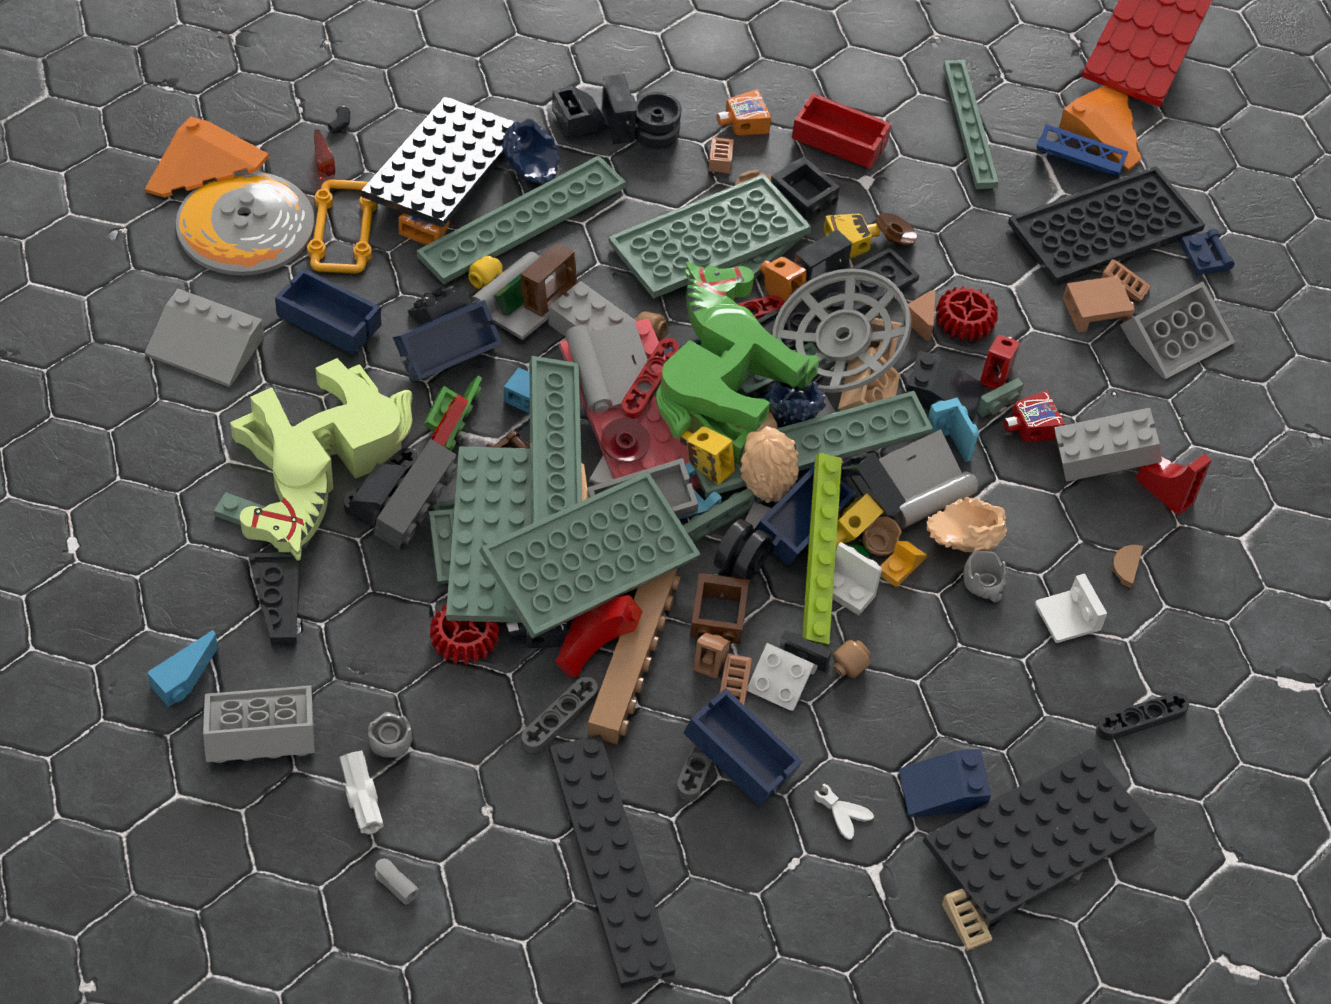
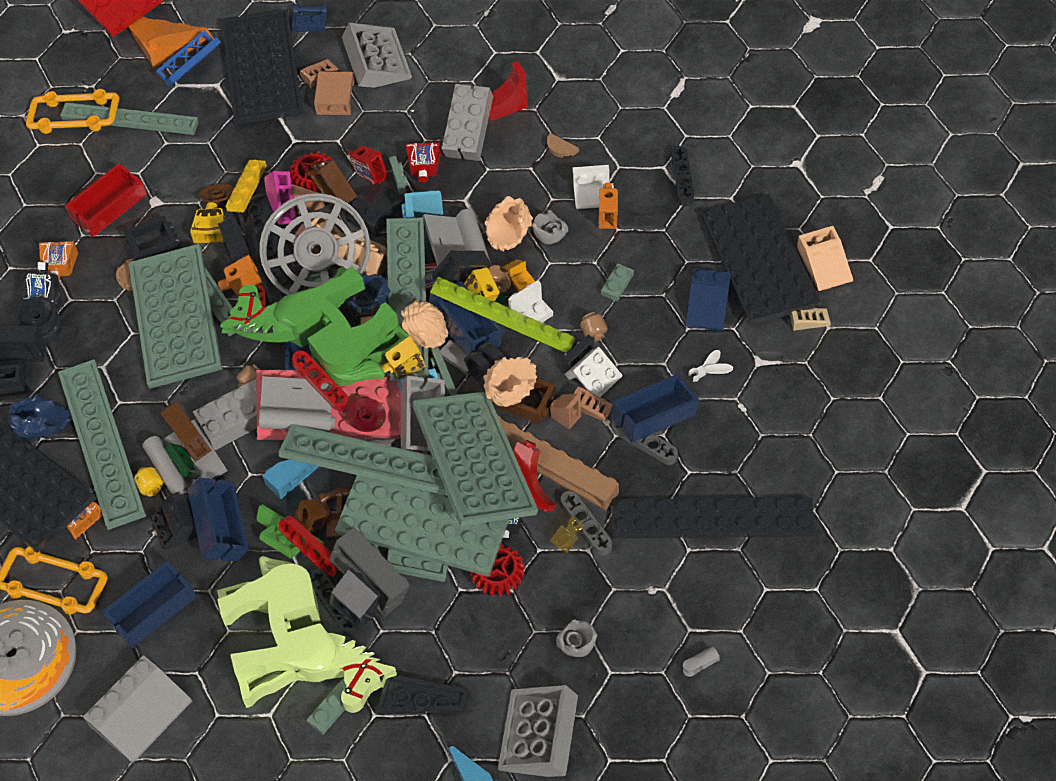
camera: 65 degrees left, 5 degrees up
(361, 792) = (621, 669): white piece -> none
(483, 428) = (311, 514): none -> reddish brown brick
(530, 693) = (566, 537): none -> clear yellow plate
(701, 108) = (42, 285): none -> black torso
(718, 570) = (510, 380): none -> light nougat hair
(721, 155) = (98, 295): nougat slope -> none
(916, 286) = (279, 192): none -> dark pink slope
(918, 253) = (246, 186): none -> yellow plate
(936, 675) = (617, 282): none -> sand green plate
(946, 90) = (52, 100): none -> light orange bar
(946, 325) = (331, 181): none -> reddish brown window
(1043, 630) = (608, 206): none -> orange torso
(1070, 916) = (824, 258): none -> light nougat slope

